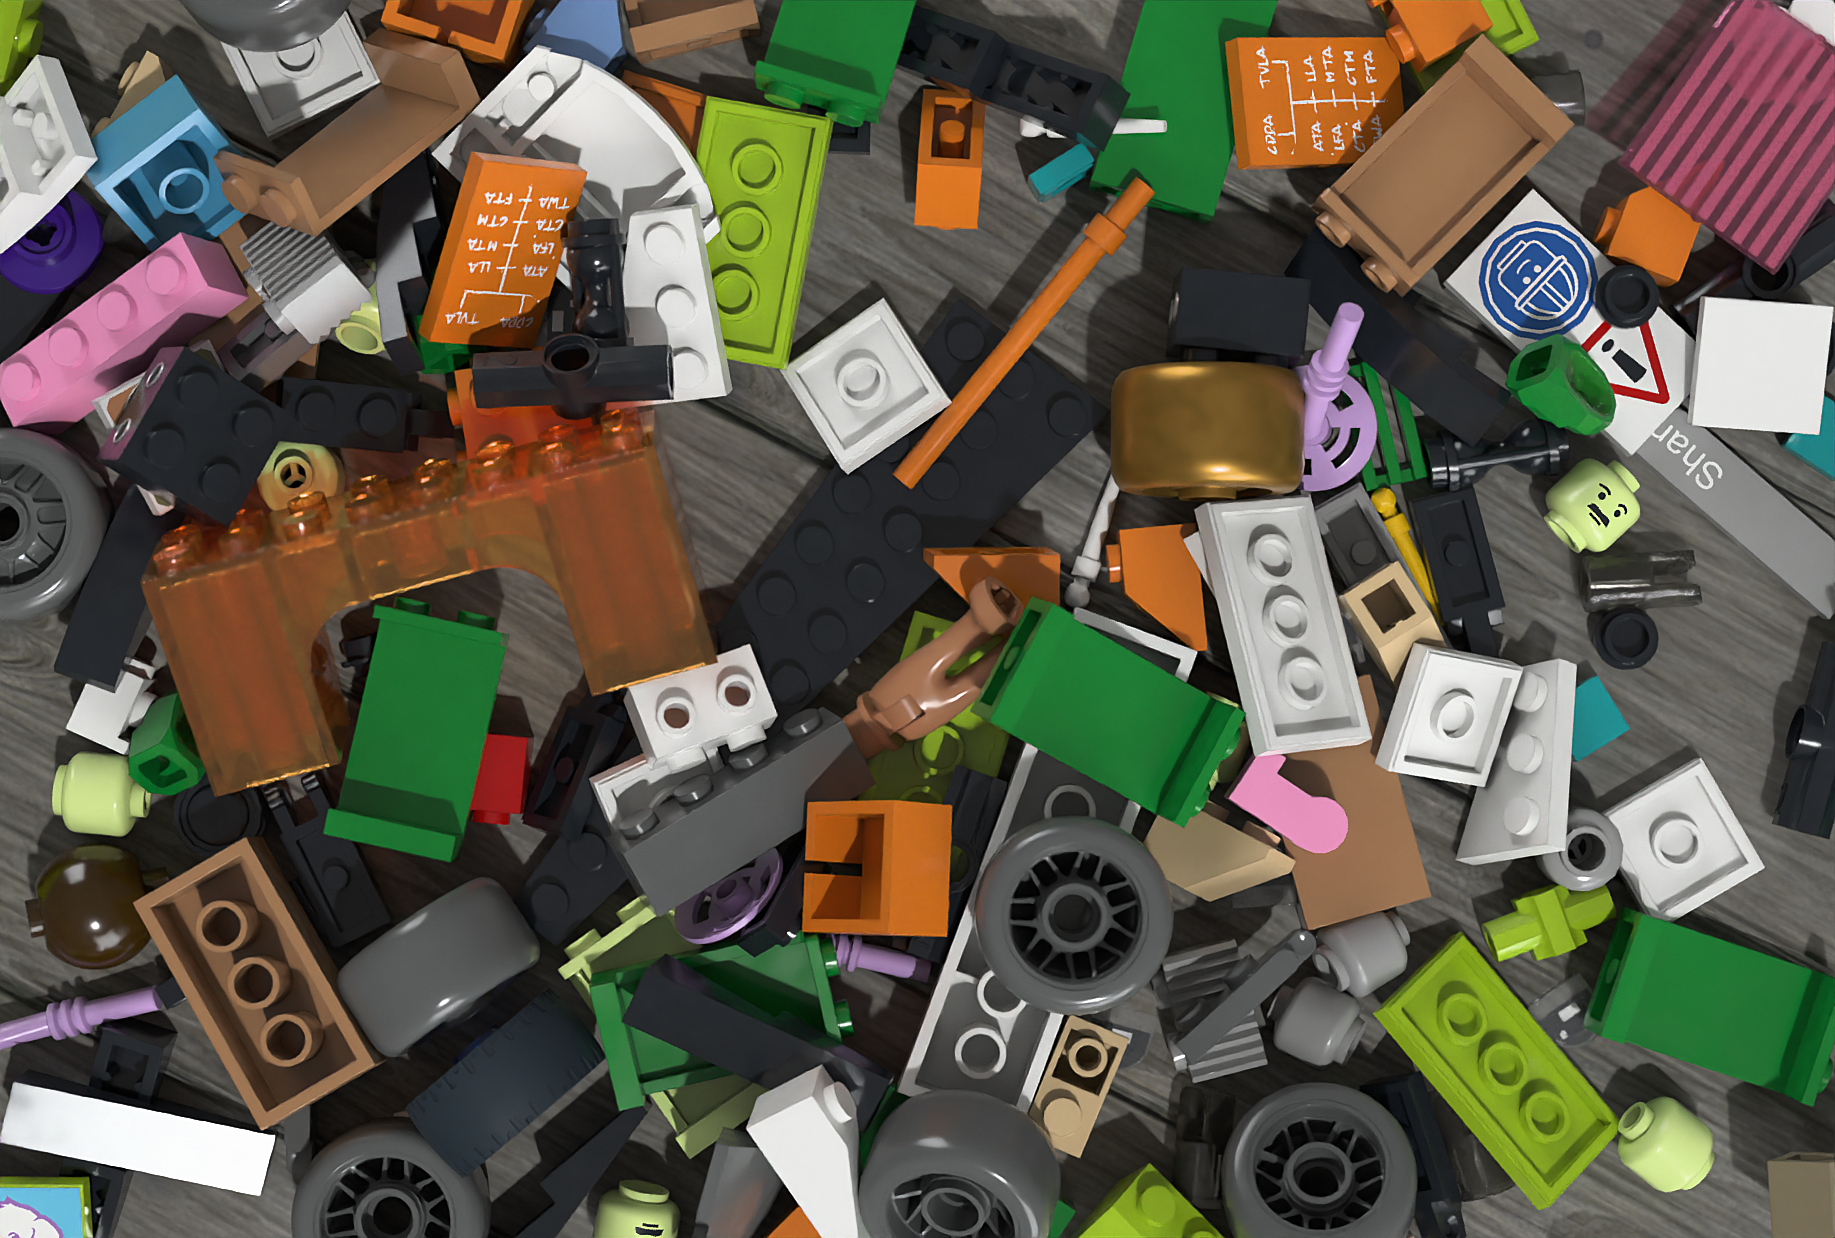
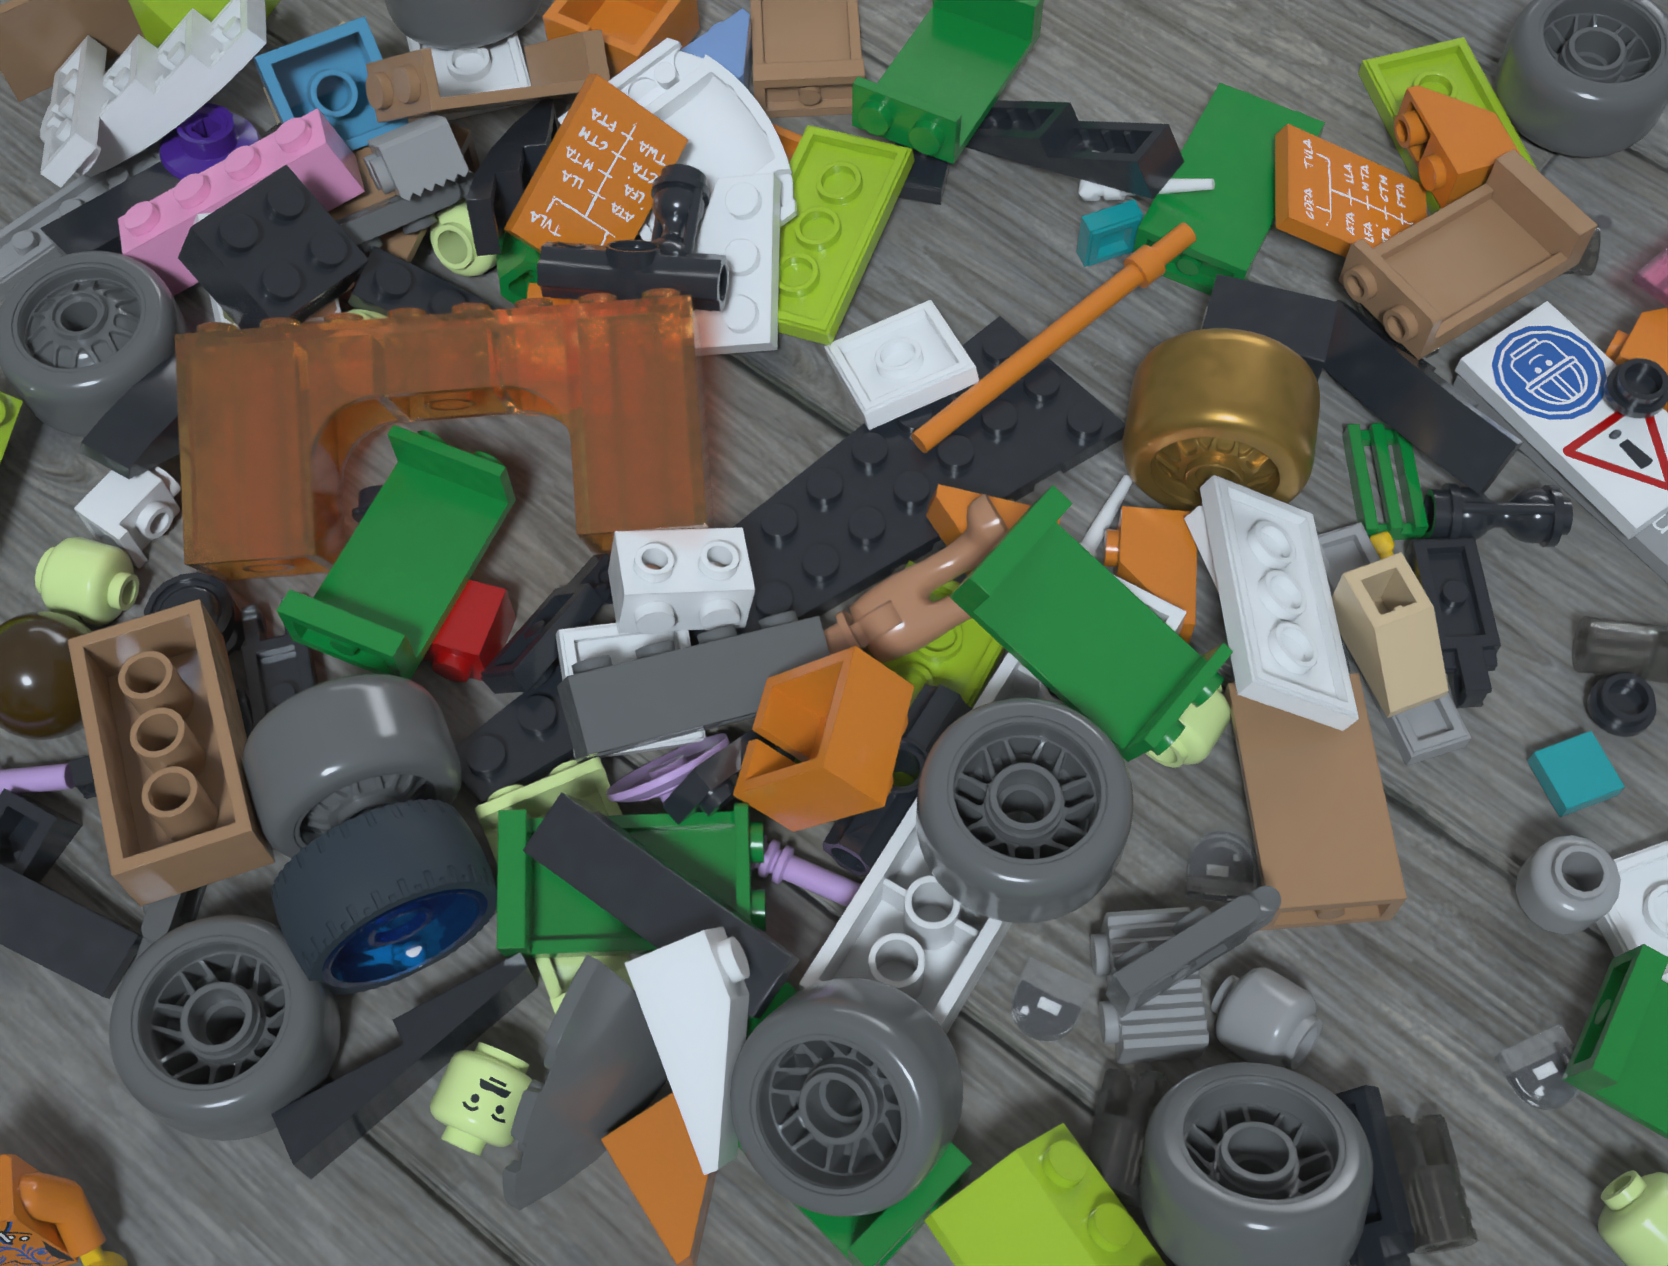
camera: 15 degrees right, 25 degrees down
(164, 749) = (153, 547): green rock -> none
(949, 161) = (1009, 213): orange slope -> none
(1076, 1082) = (997, 1023): tan slope -> none
(1213, 856) = (1185, 817): tan slope -> none
(1303, 819) = (1260, 770): bright pink leg -> none
(1321, 385) = (1330, 453): lavender dish -> none
(1362, 952) = (1323, 951): light grey head -> none
(1449, 715) = (1438, 723): white tile -> none
(1499, 1070) = (1469, 1109): lime tile -> none
(1528, 784) = (1515, 804): white wing -> none
(1547, 922) = (1530, 961): lime axle -> none
(1562, 385) = (1573, 446): green rock -> none
(1592, 505) = (1593, 571): yellowish green head -> none

